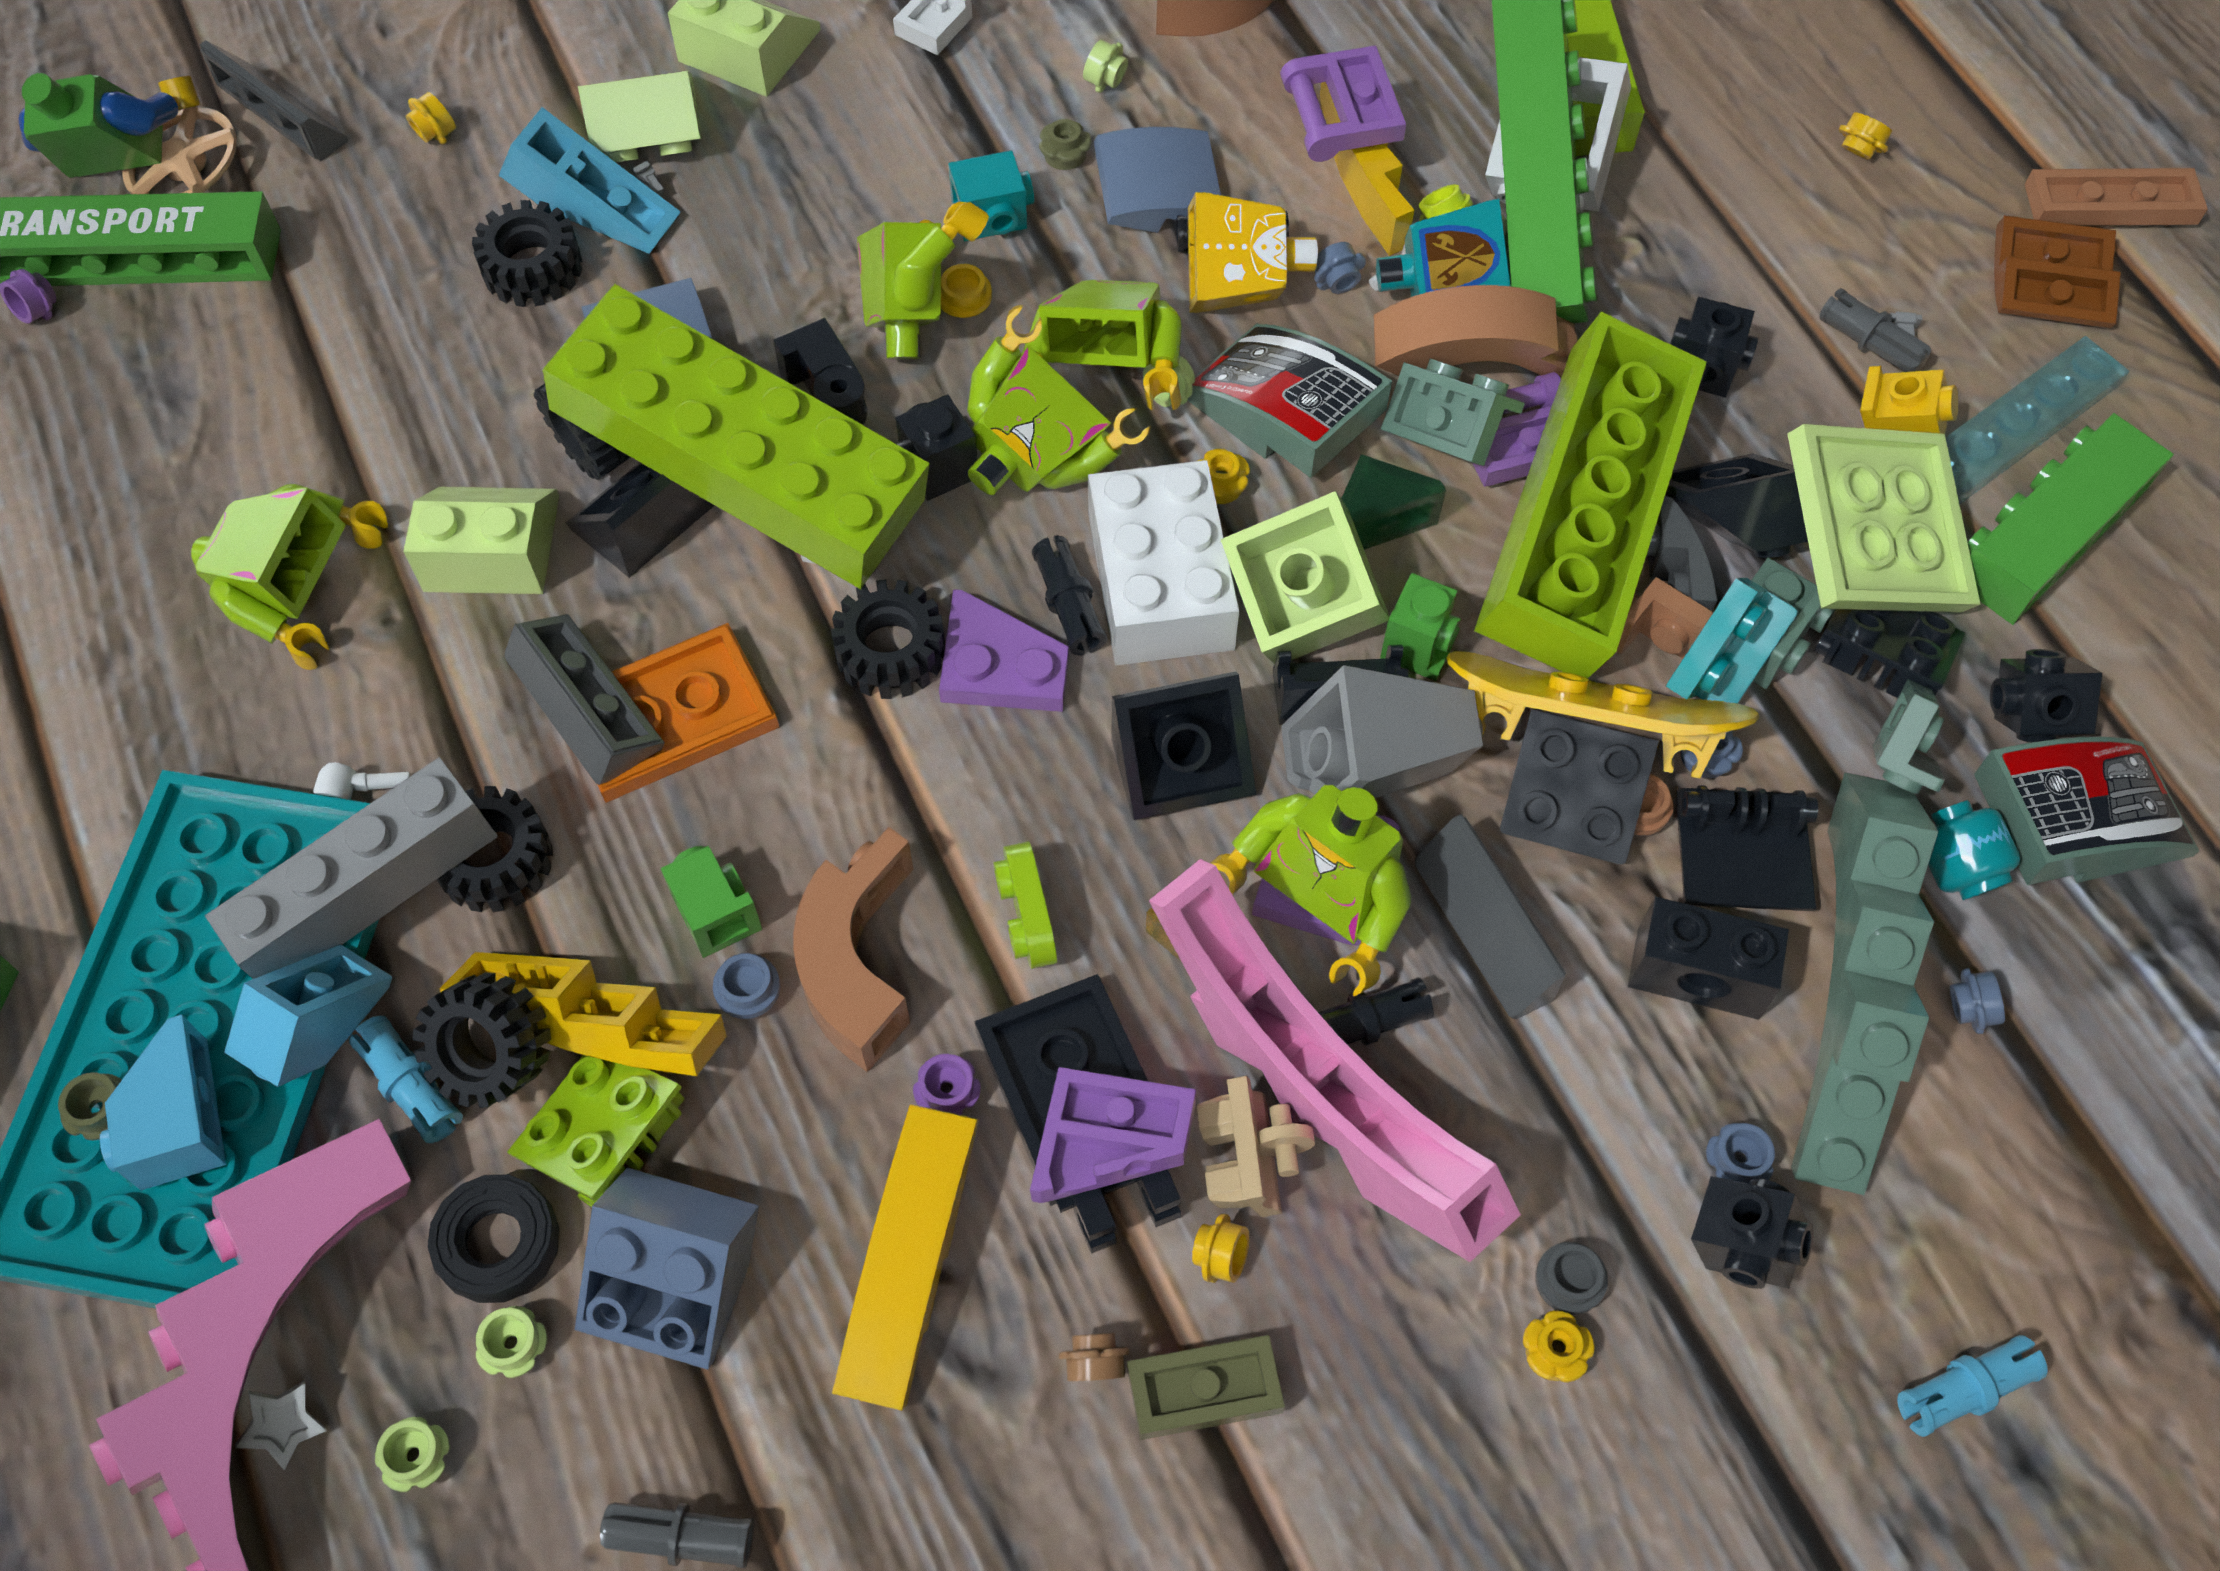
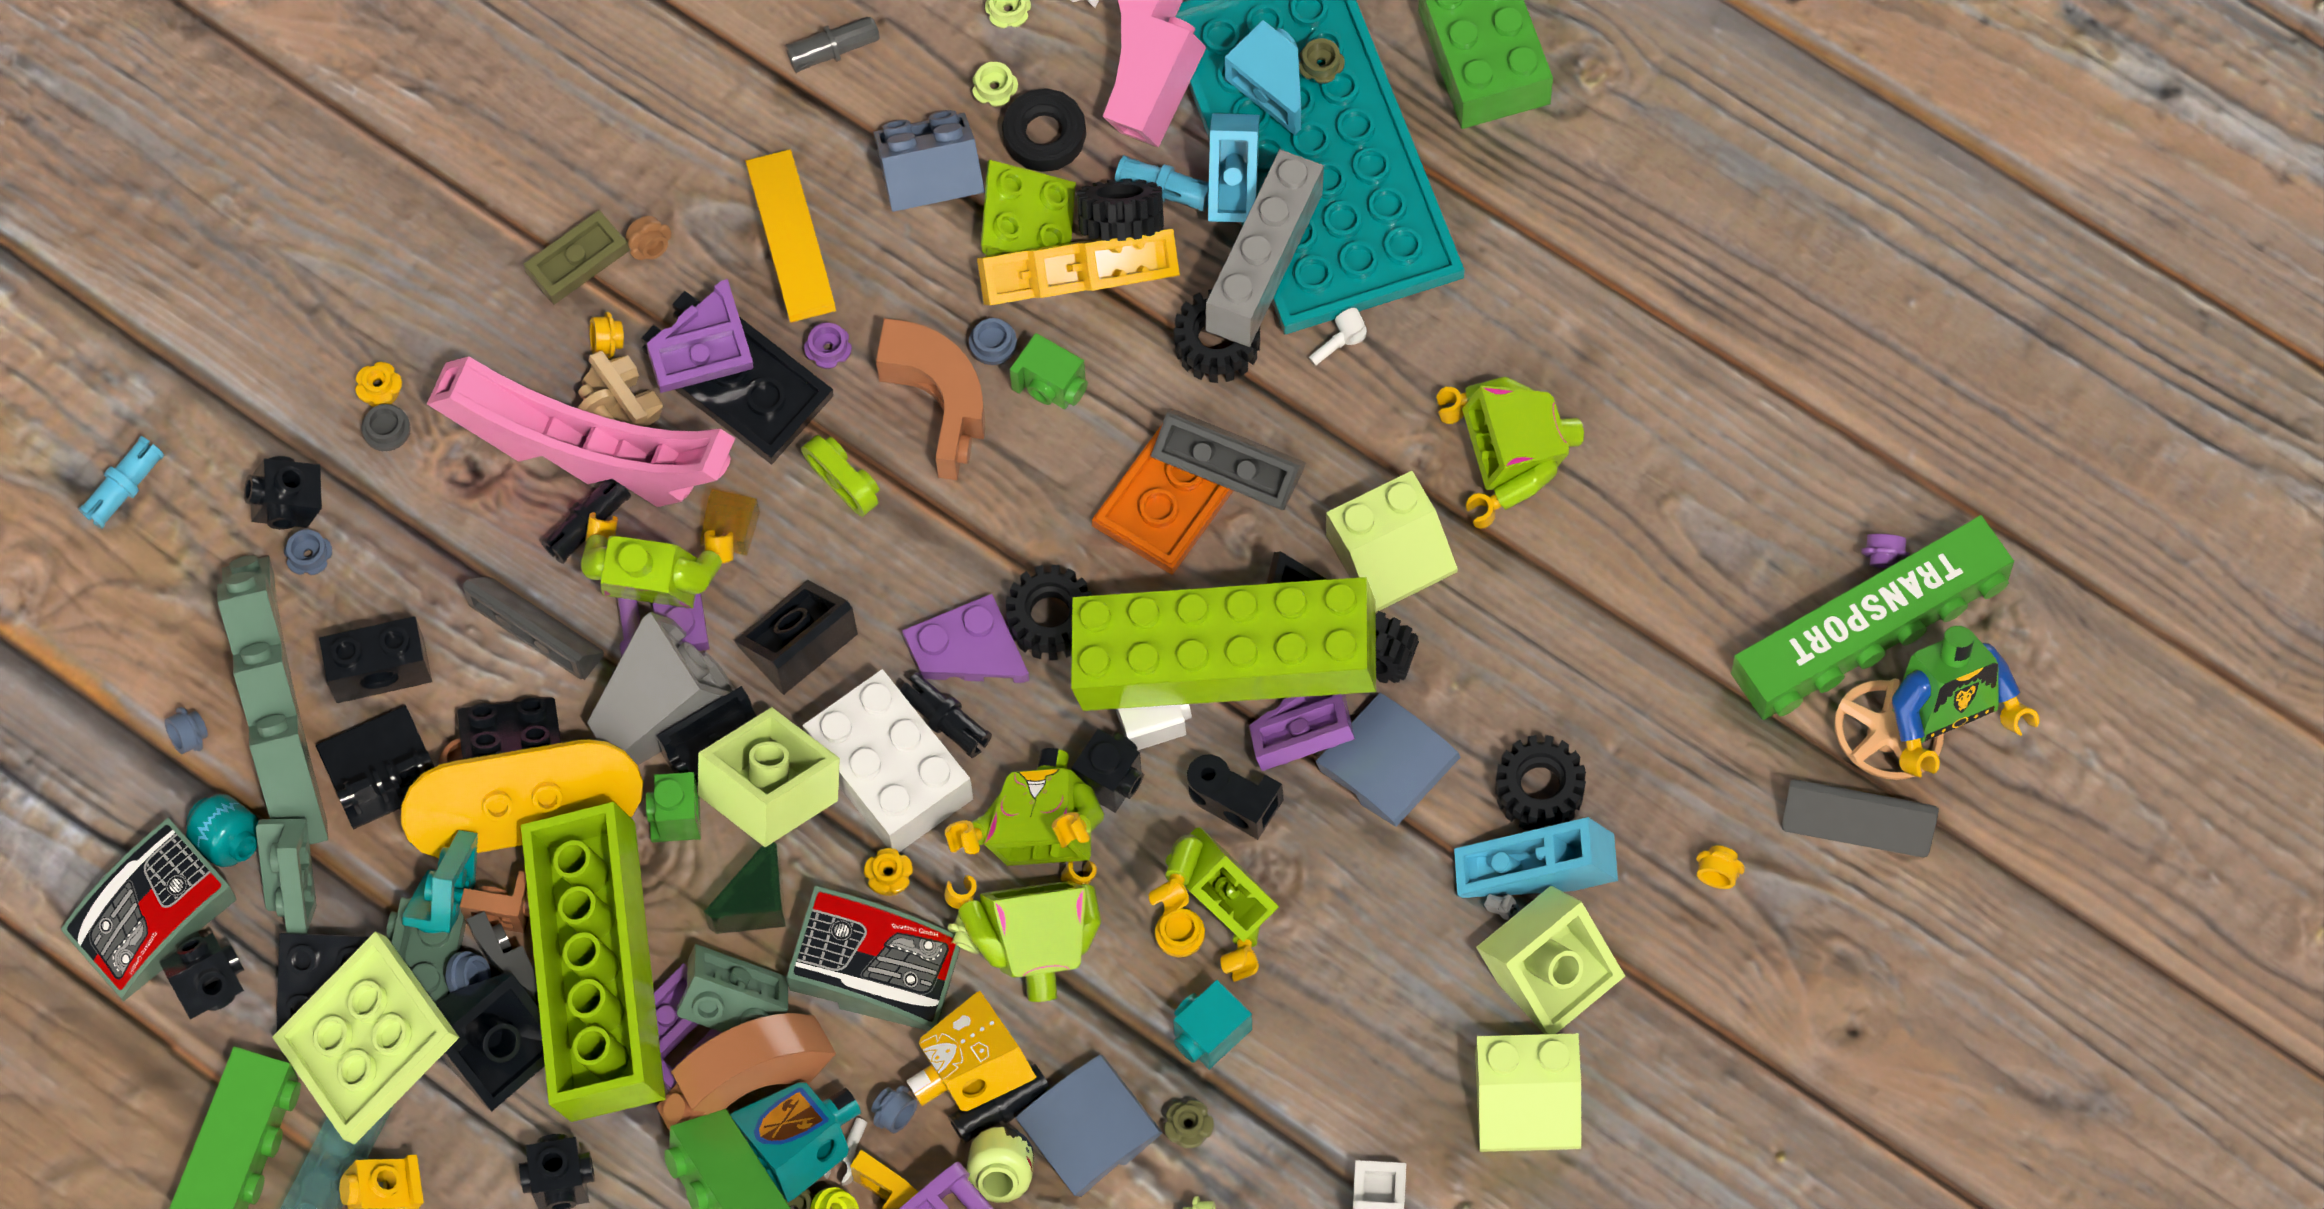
camera: 155 degrees right, 5 degrees up
(1265, 165) = (1001, 1164): none -> yellowish green head
(1733, 563) = (466, 969): none -> sand blue plate

